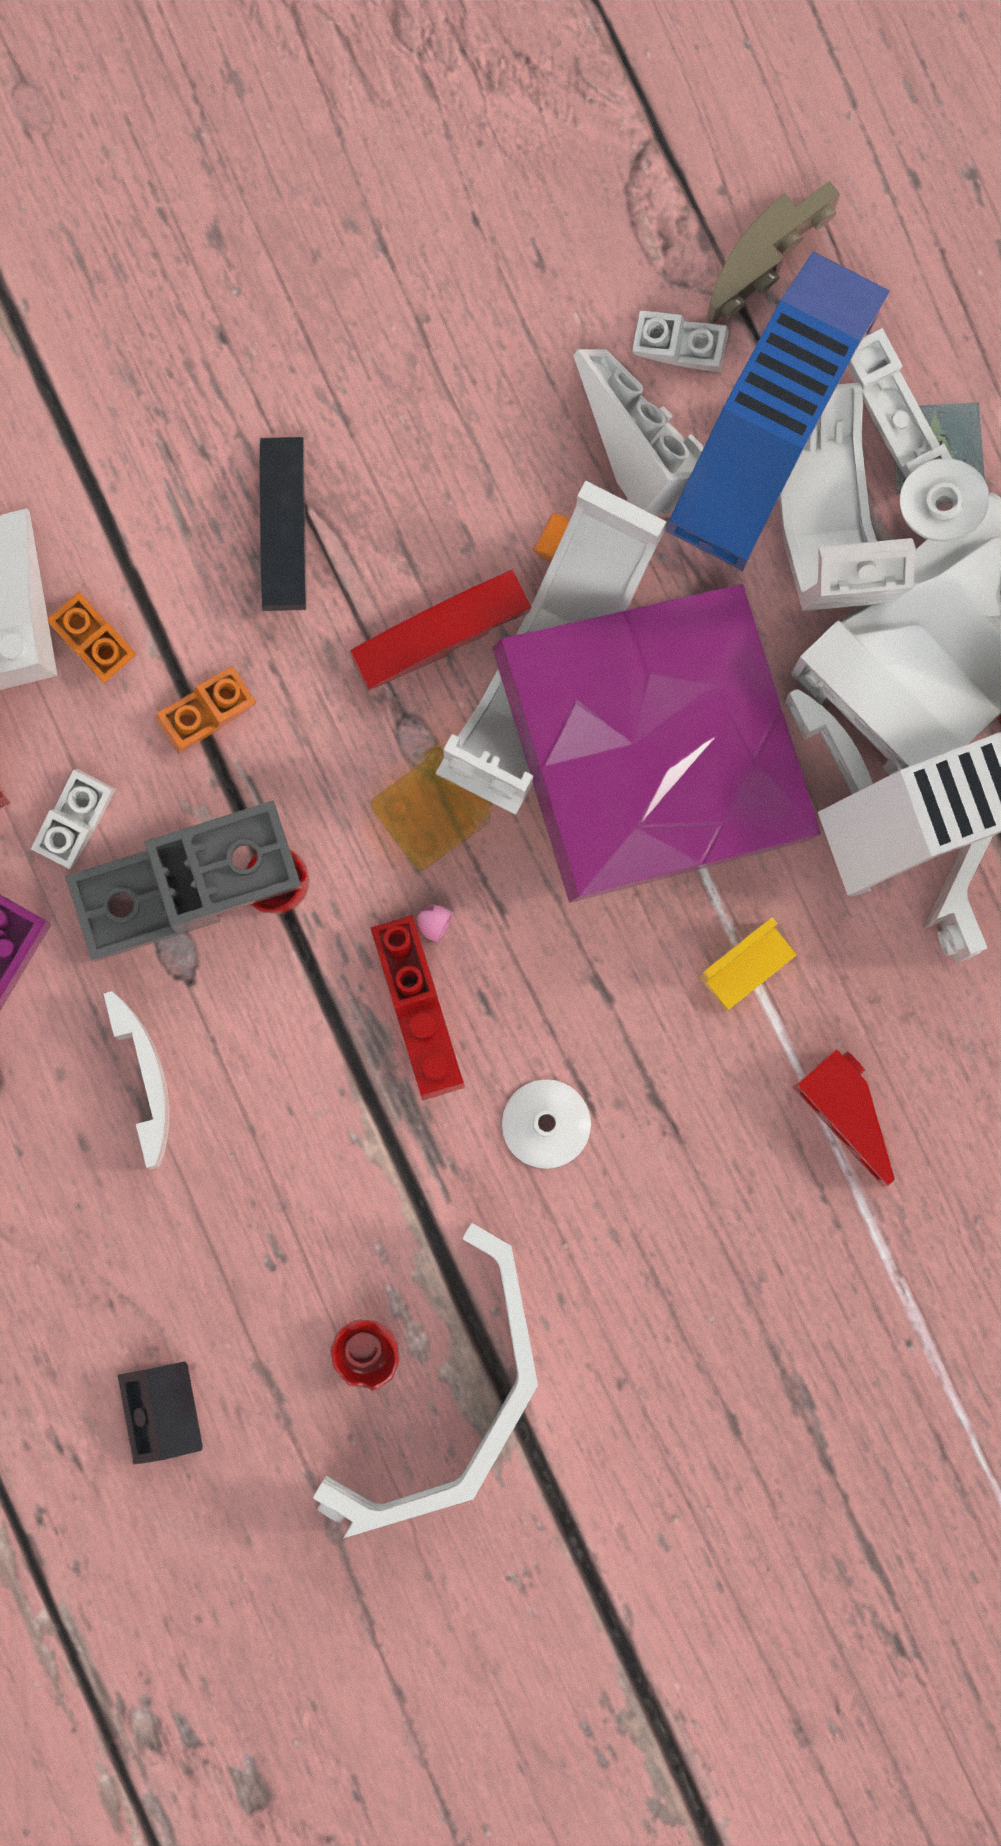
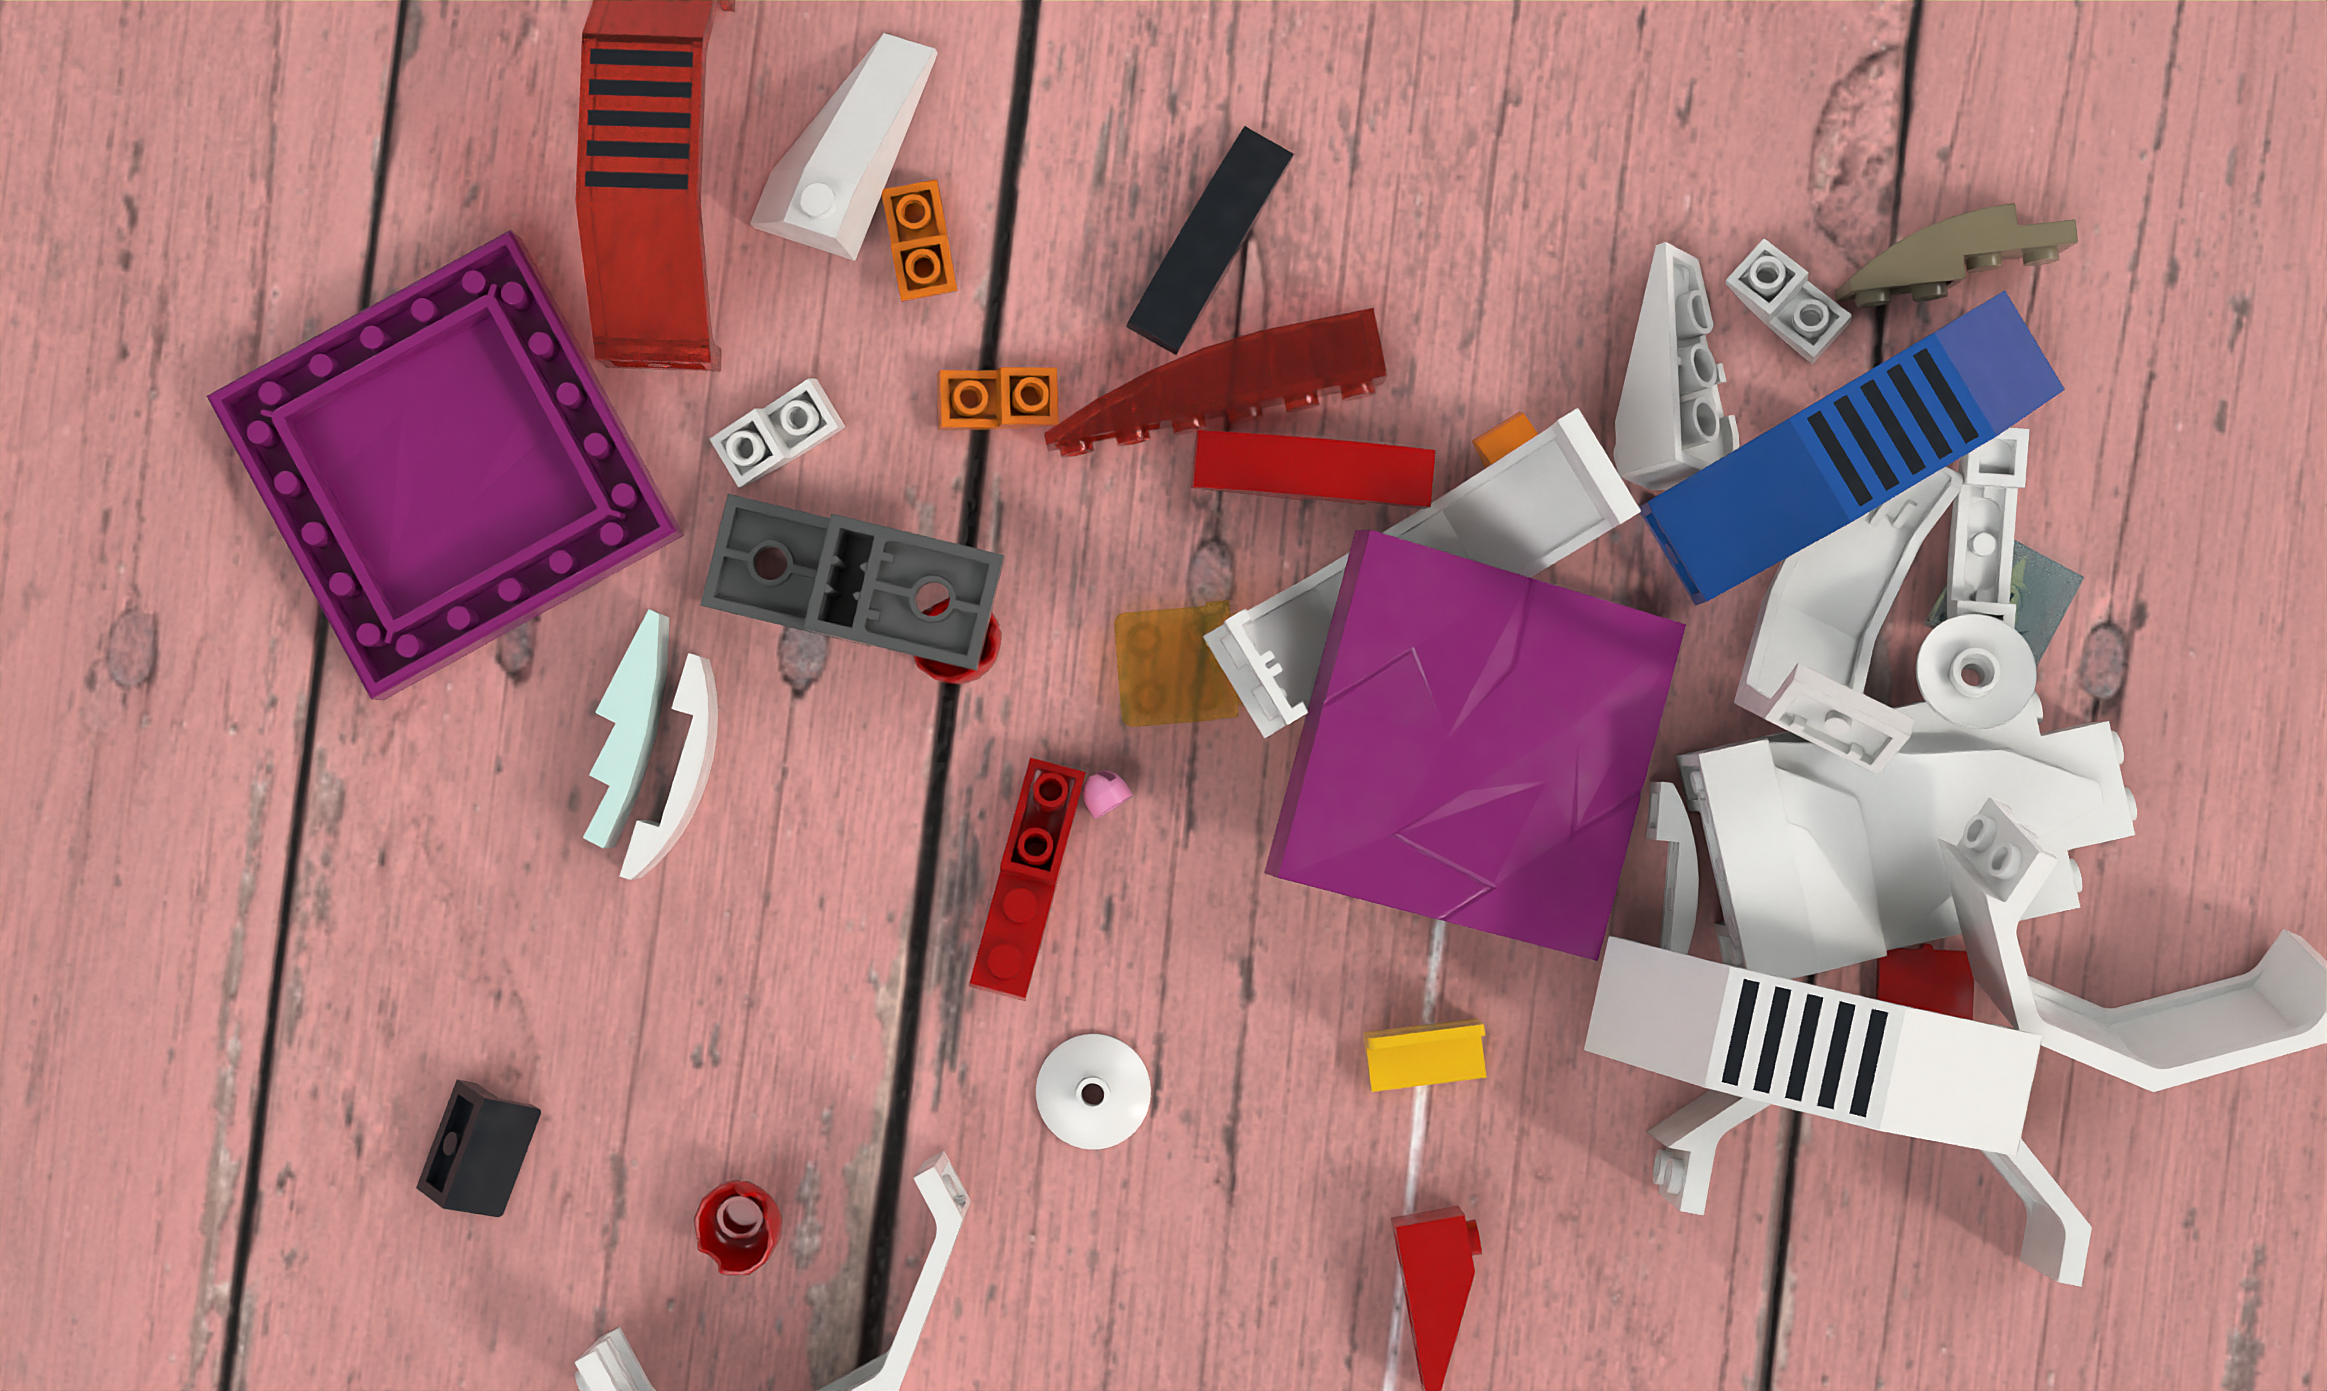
camera: 35 degrees right, 5 degrees up
(87, 1054) = (635, 706): none -> light aqua slope
(354, 603) = (1234, 380): none -> clear red slope

